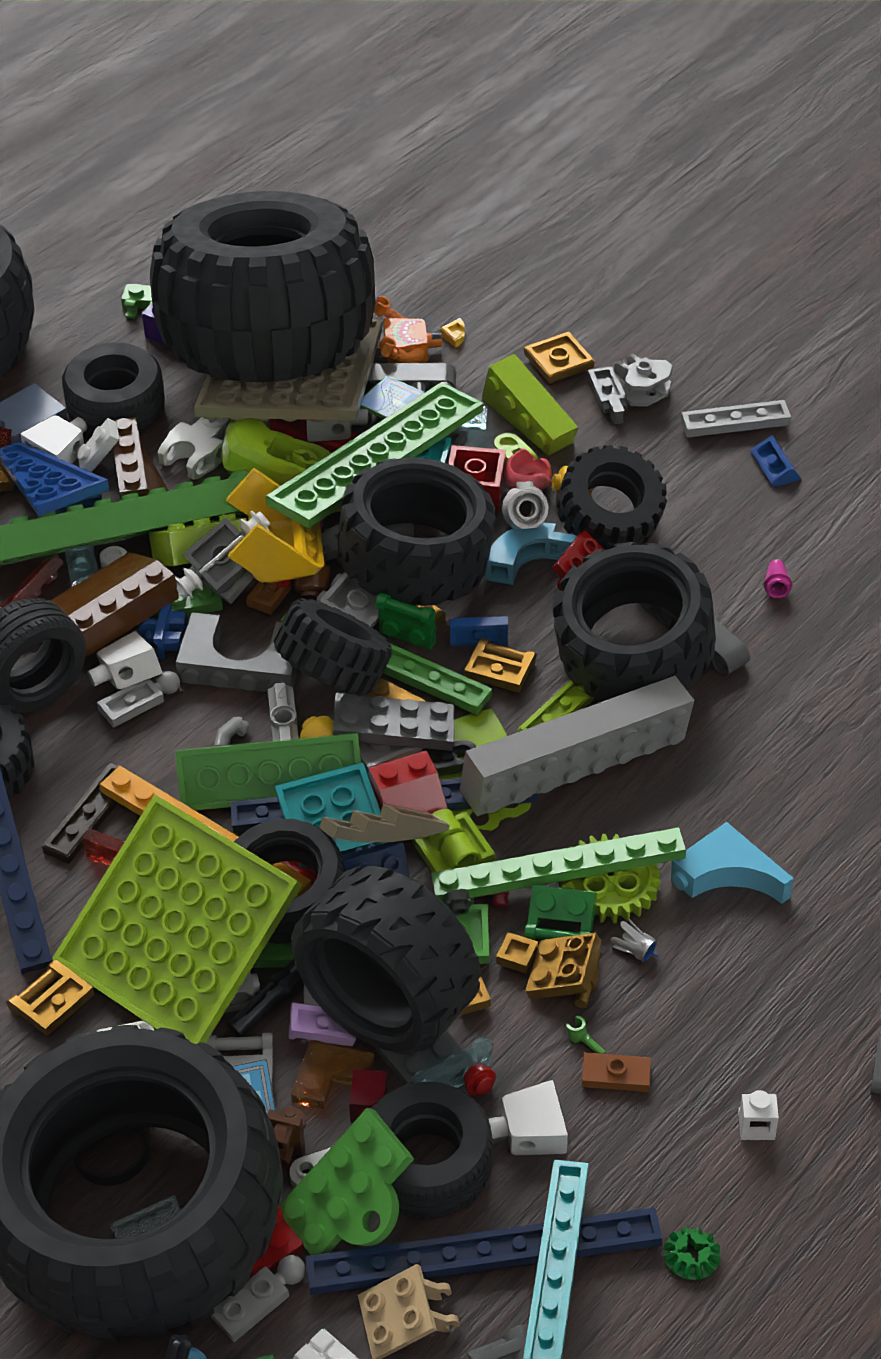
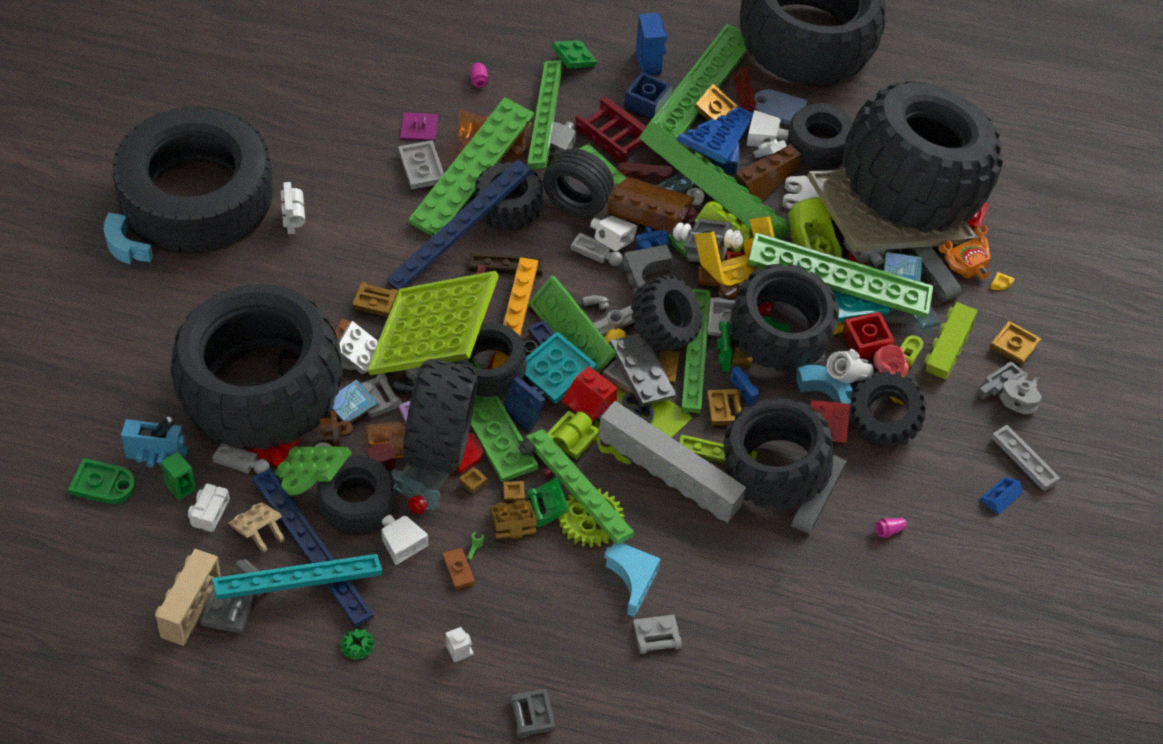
camera: 60 degrees right, 5 degrees up
(390, 826) = (551, 392): dark tan slope -> none
(635, 942) = (550, 549): flat silver piece -> none
(824, 878) = (657, 628): none -> light grey plate

